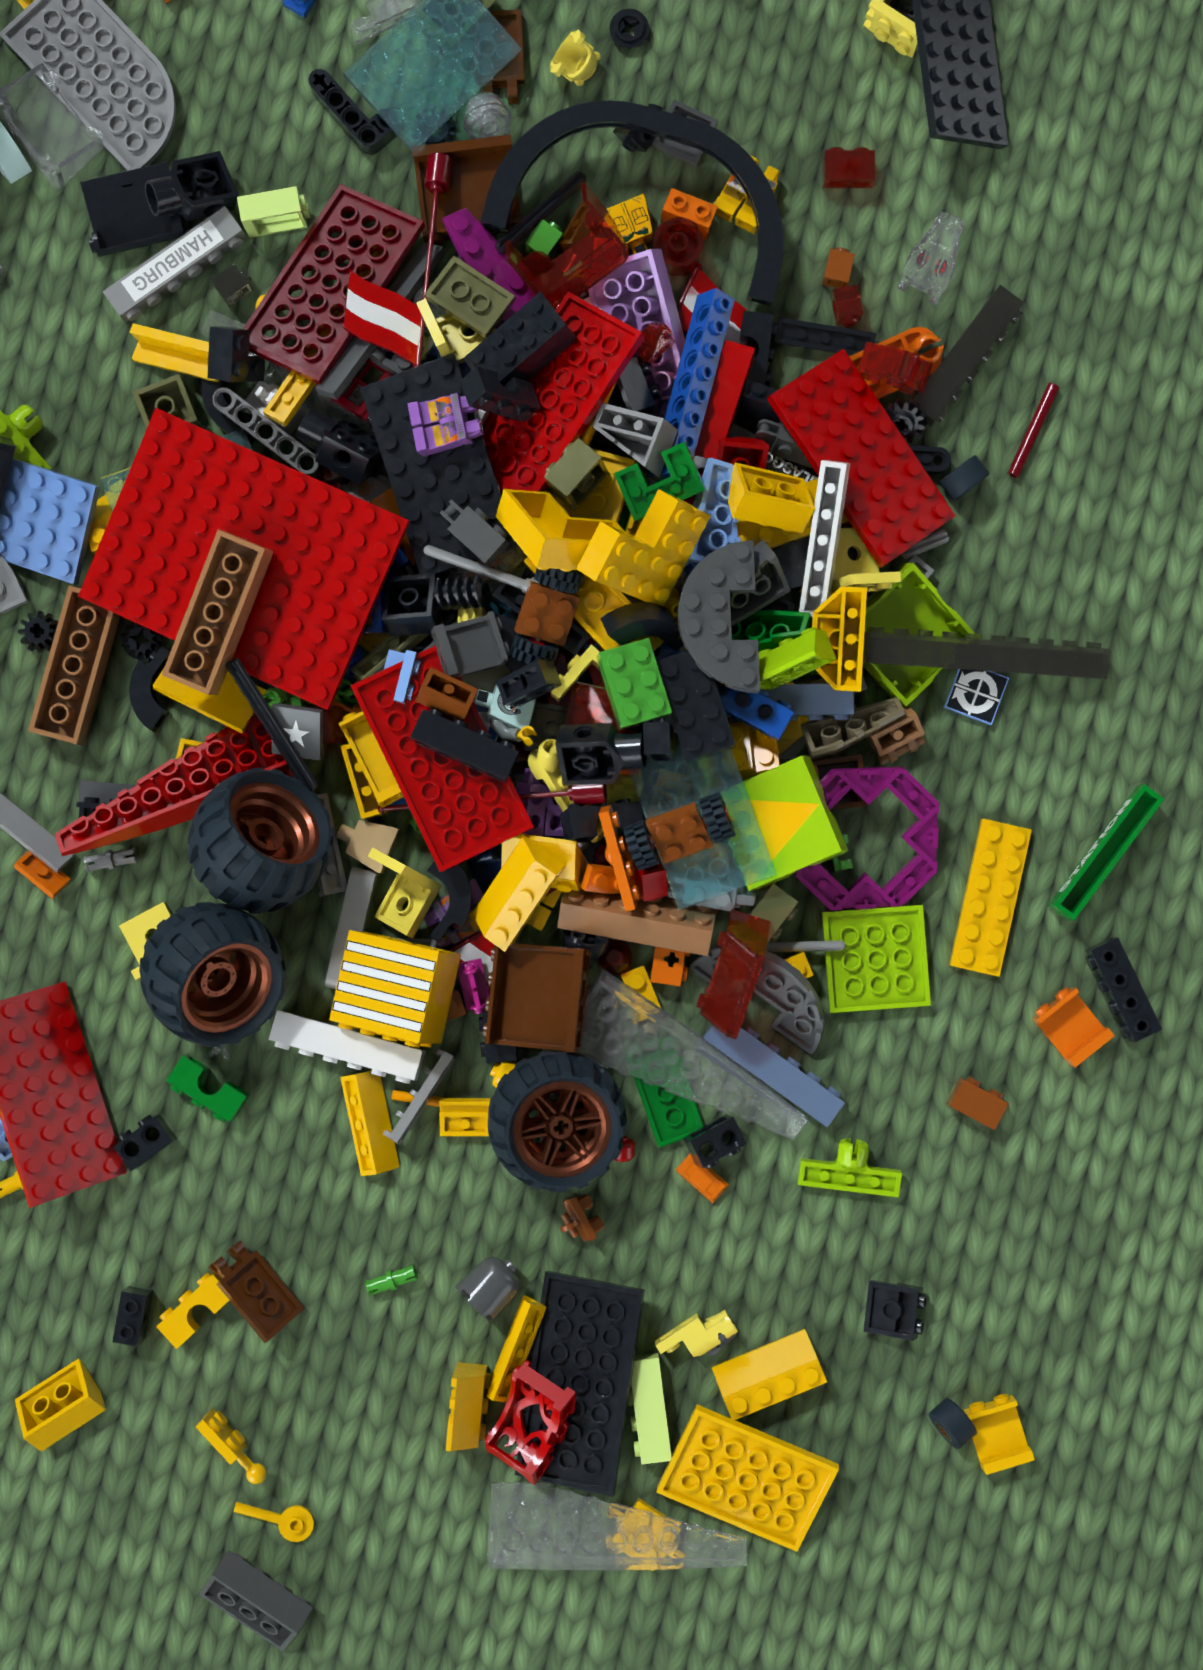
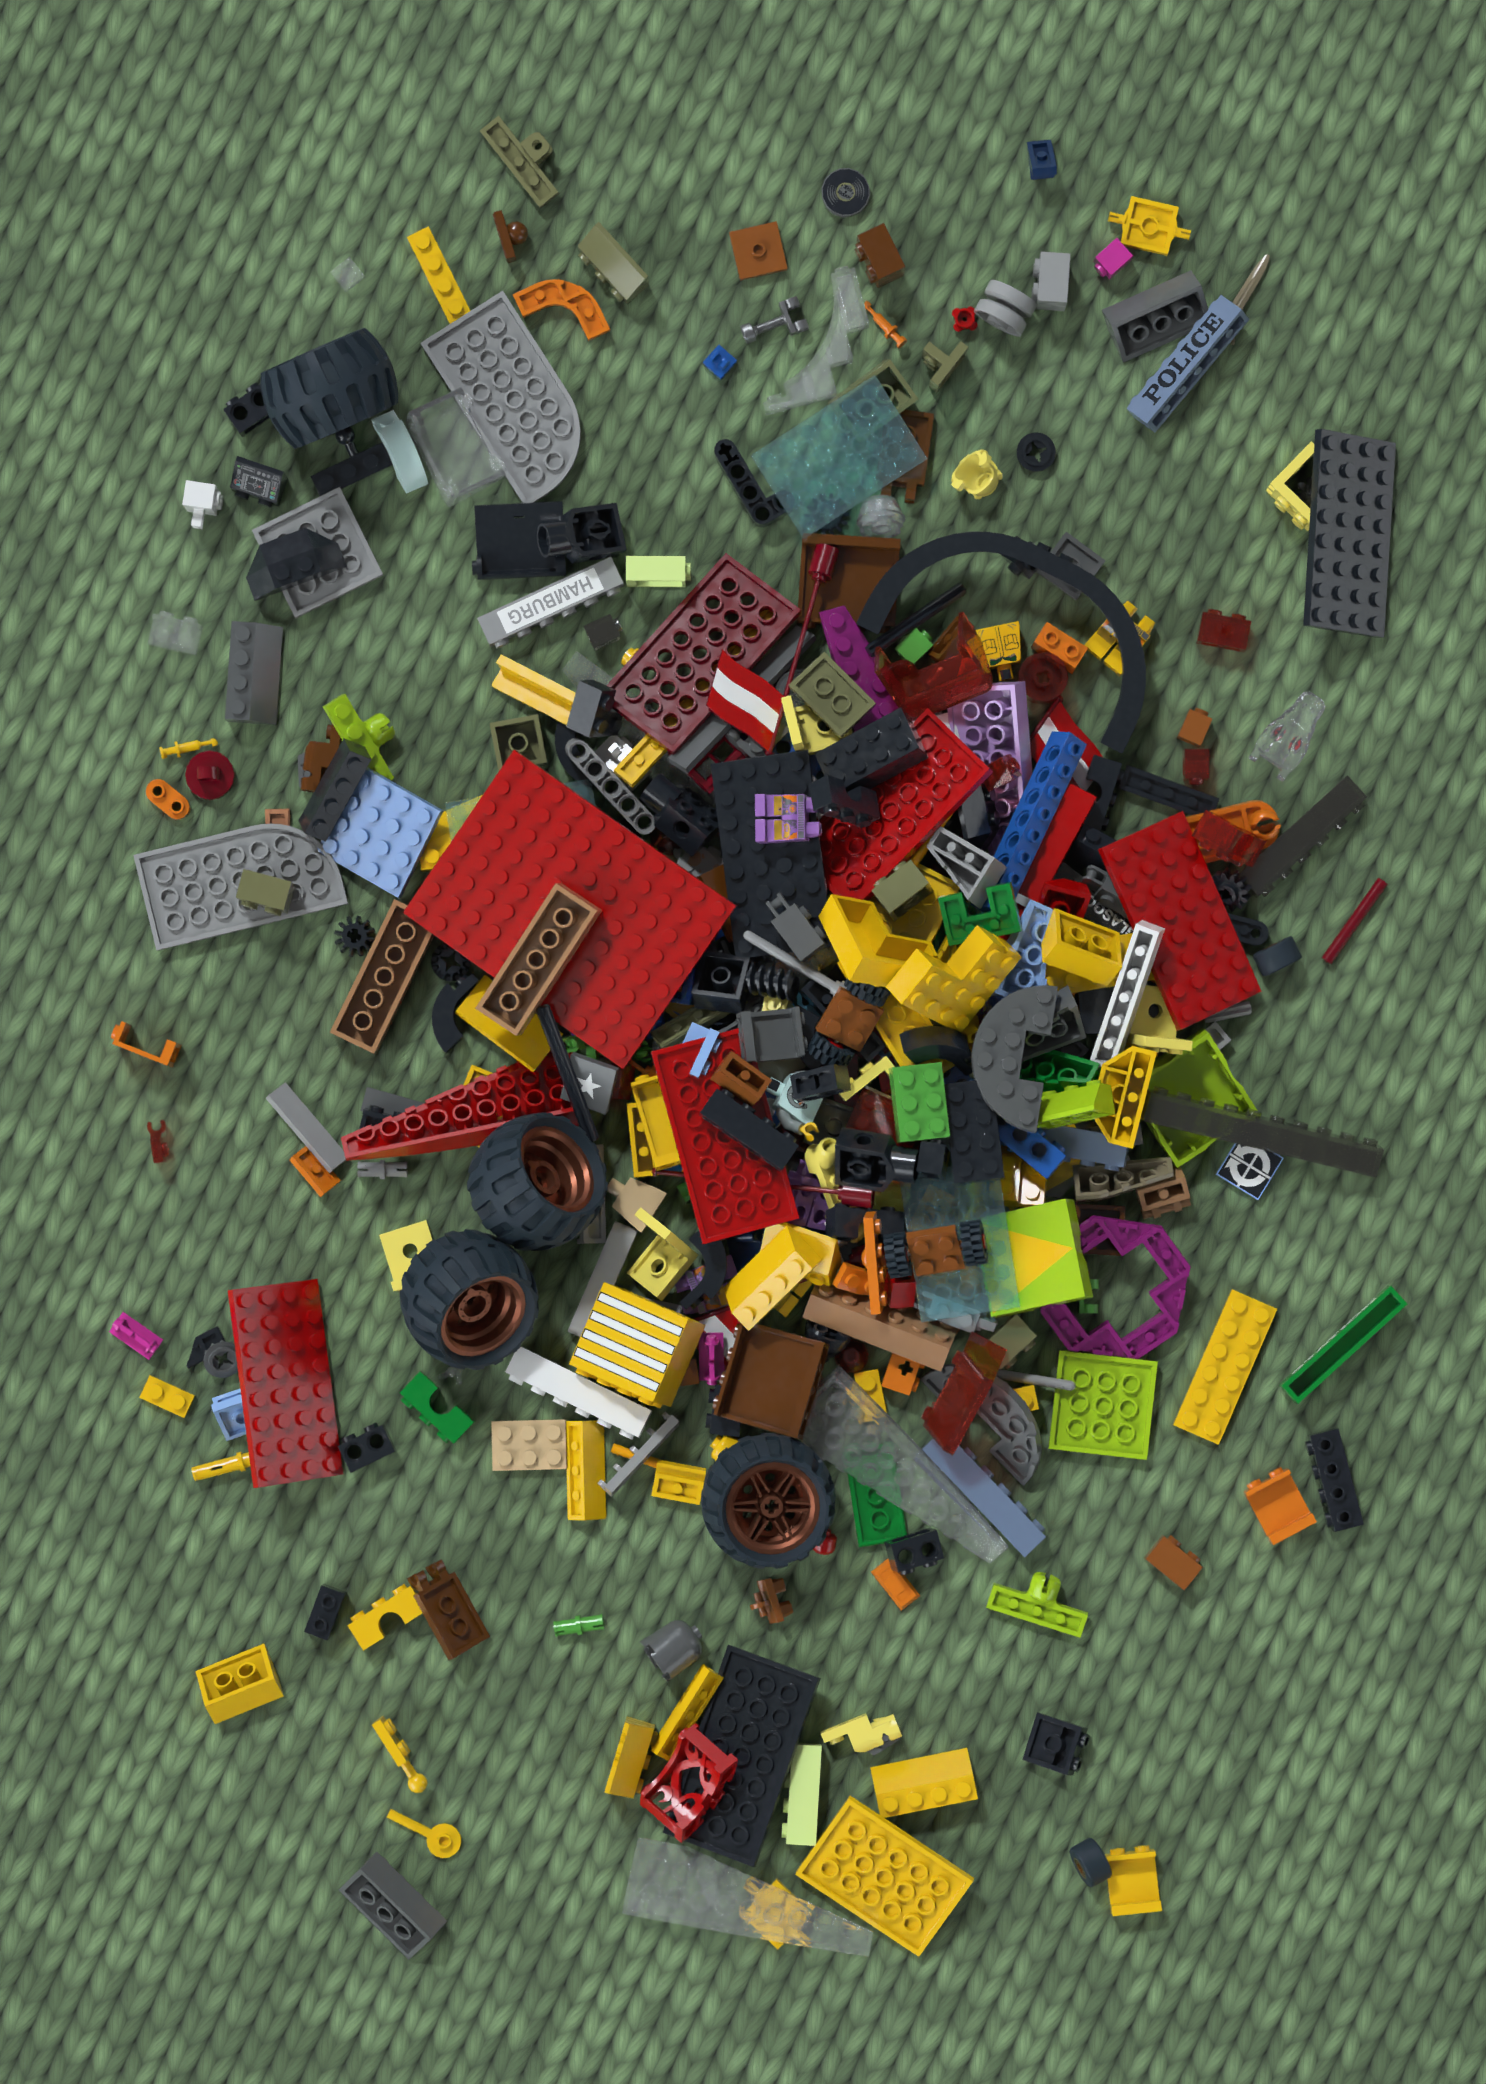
camera: 10 degrees right, 0 degrees up
(308, 1108) = (529, 1445): none -> tan plate

